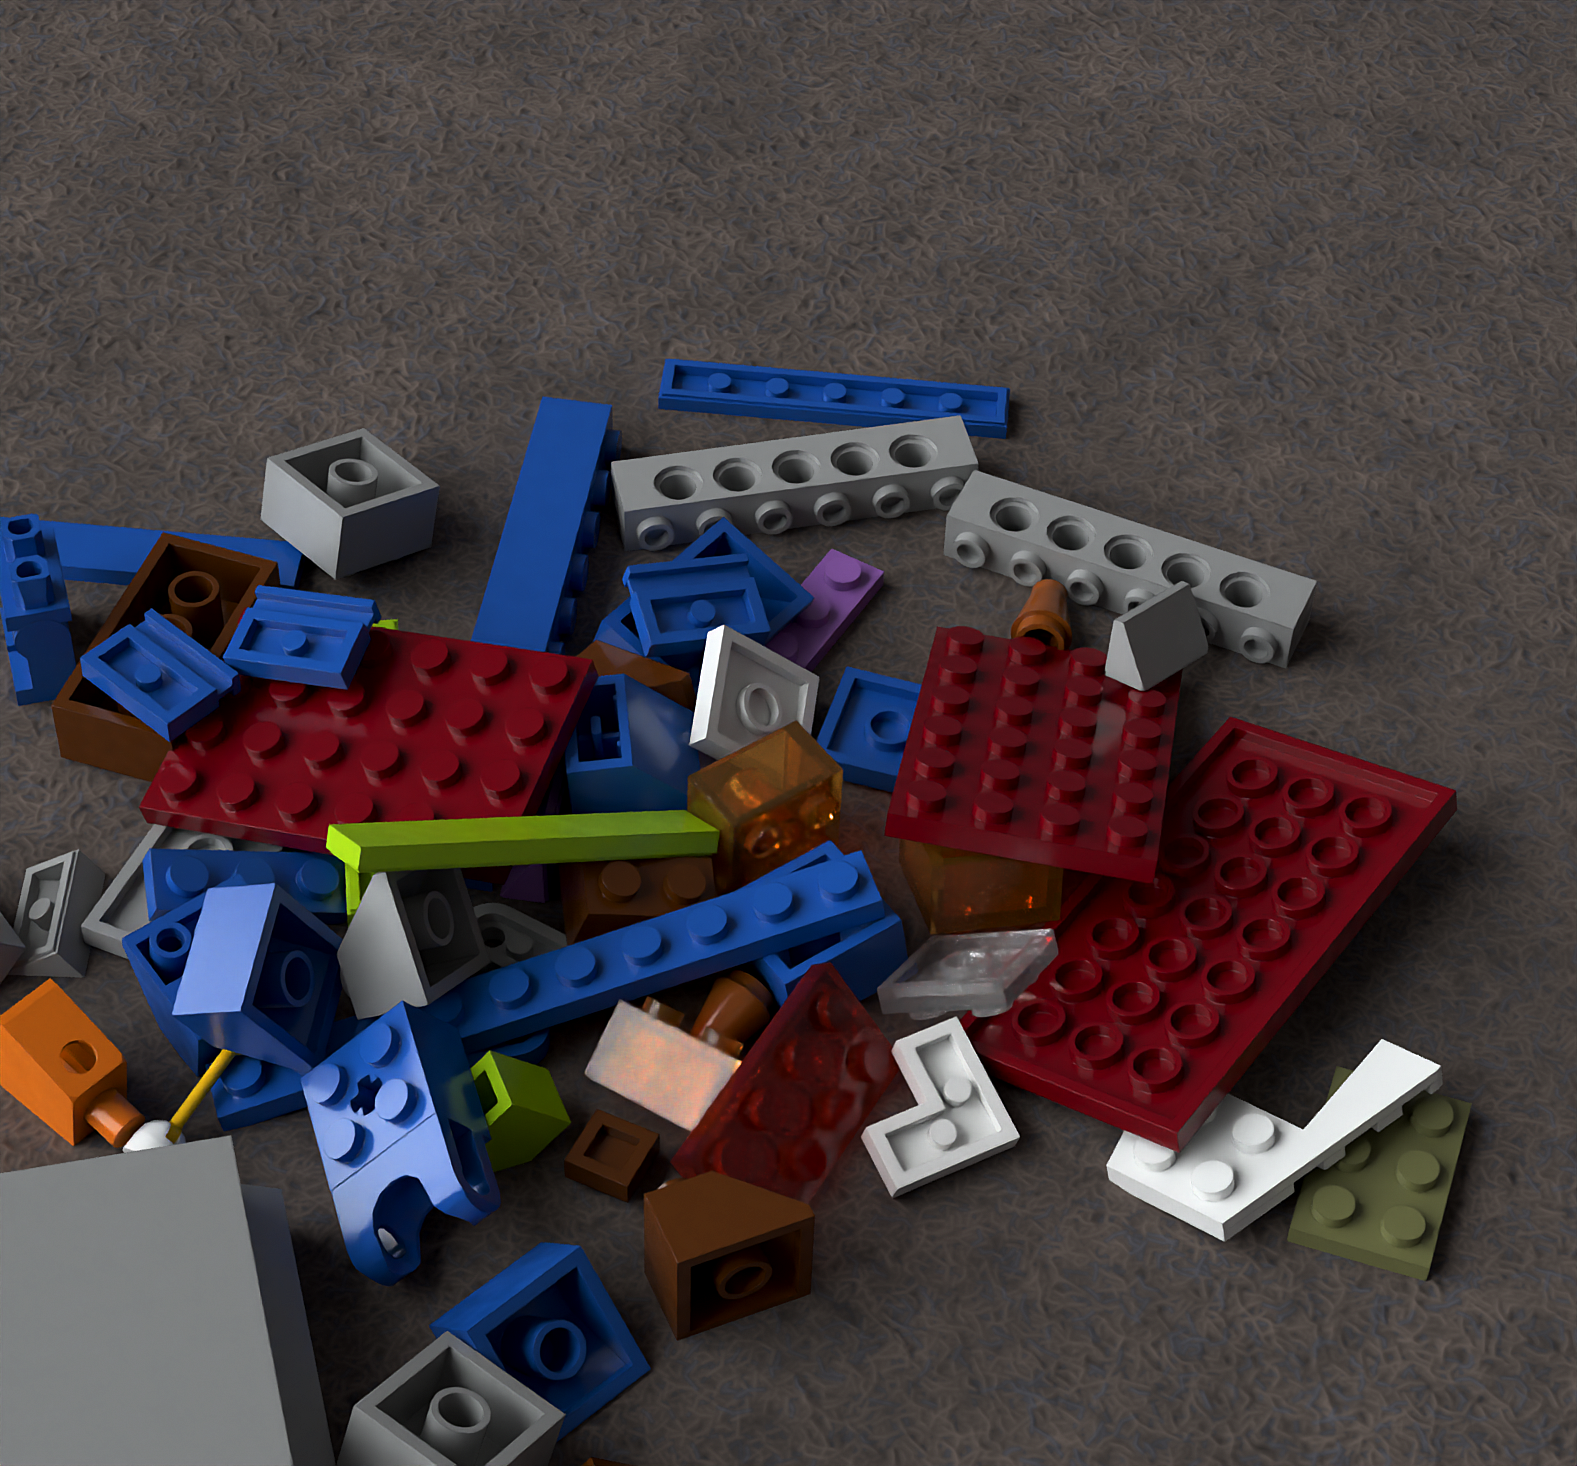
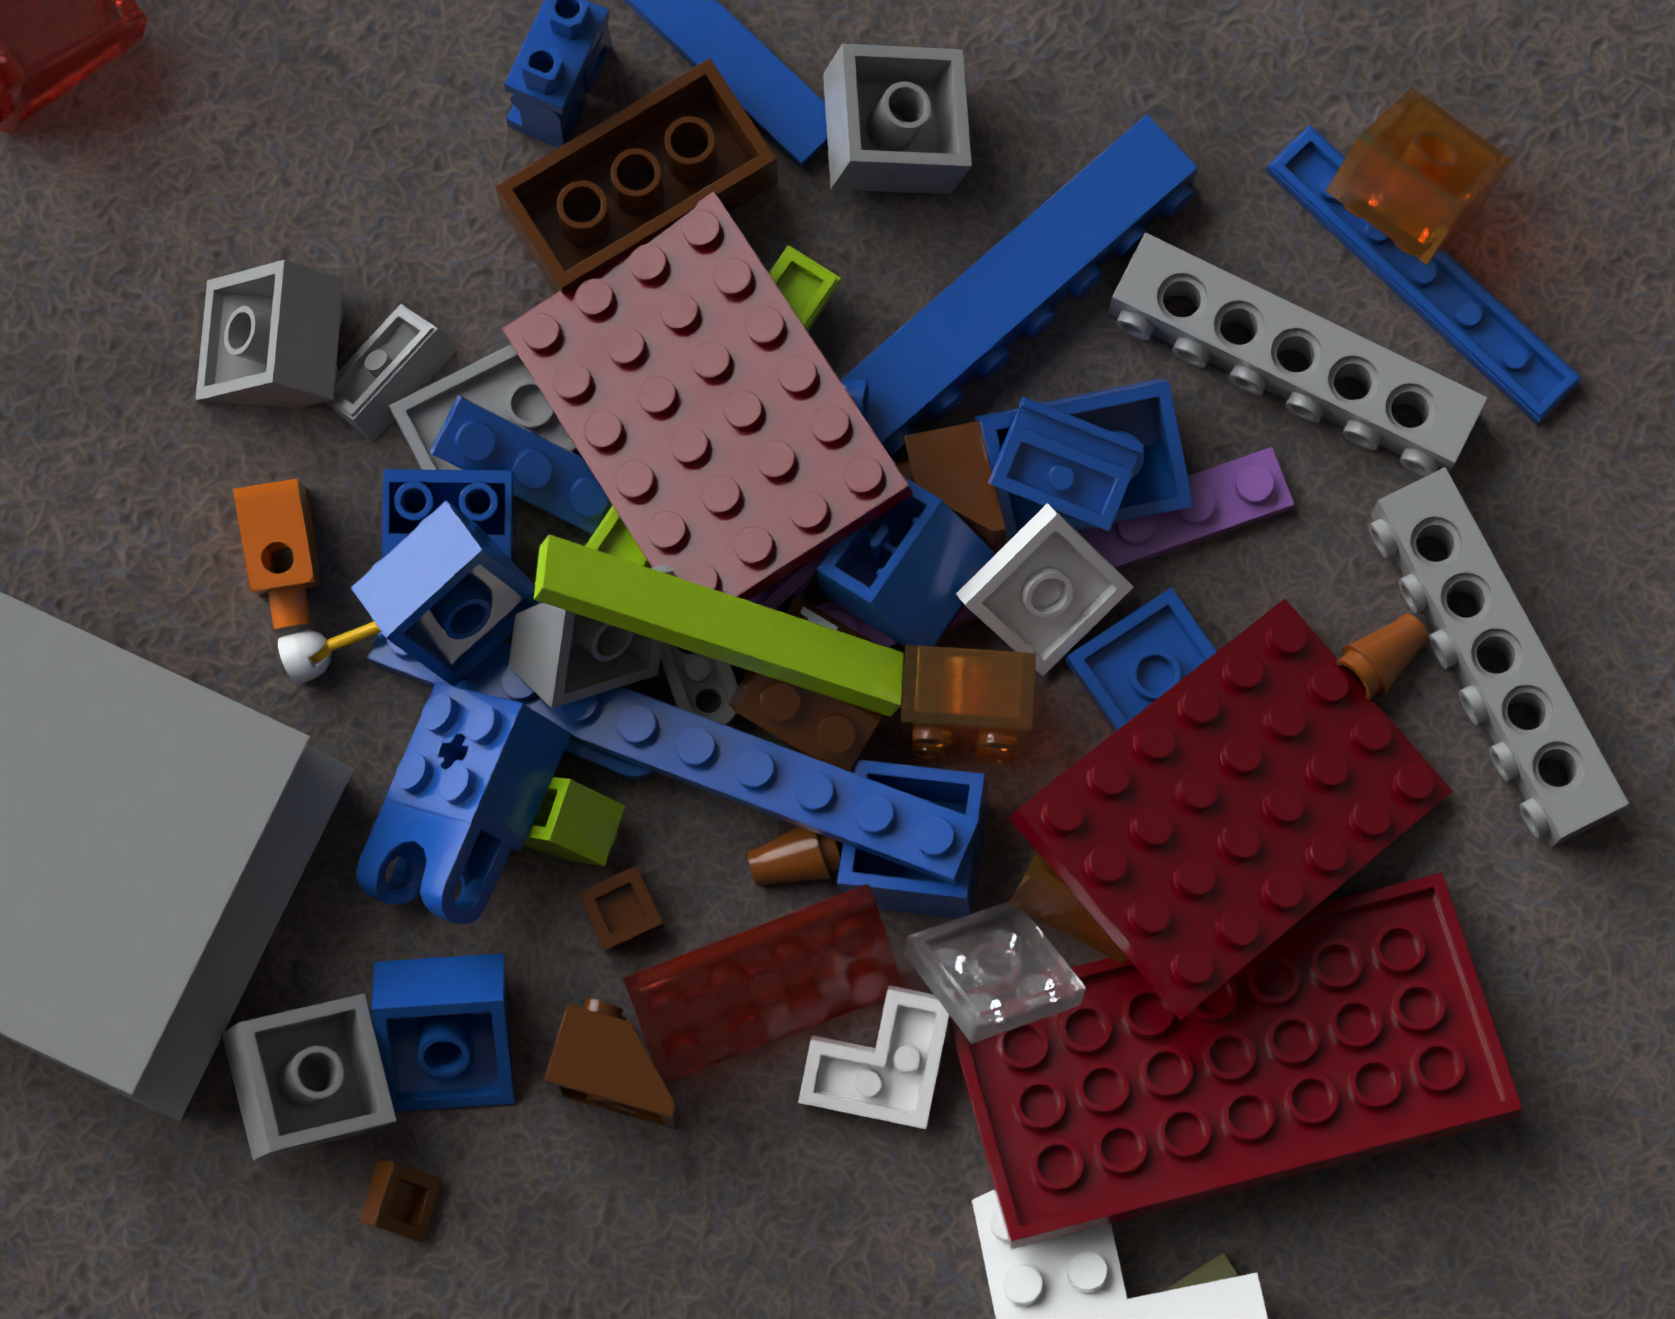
camera: 40 degrees right, 30 degrees up
(160, 675) = (587, 228): blue plate -> none
(302, 637) = (711, 282): blue plate -> none
(662, 1063) = (711, 874): clear orange brick -> none
(780, 324) = (1418, 175): none -> clear orange brick
(1156, 639) = (1434, 766): light grey slope -> none

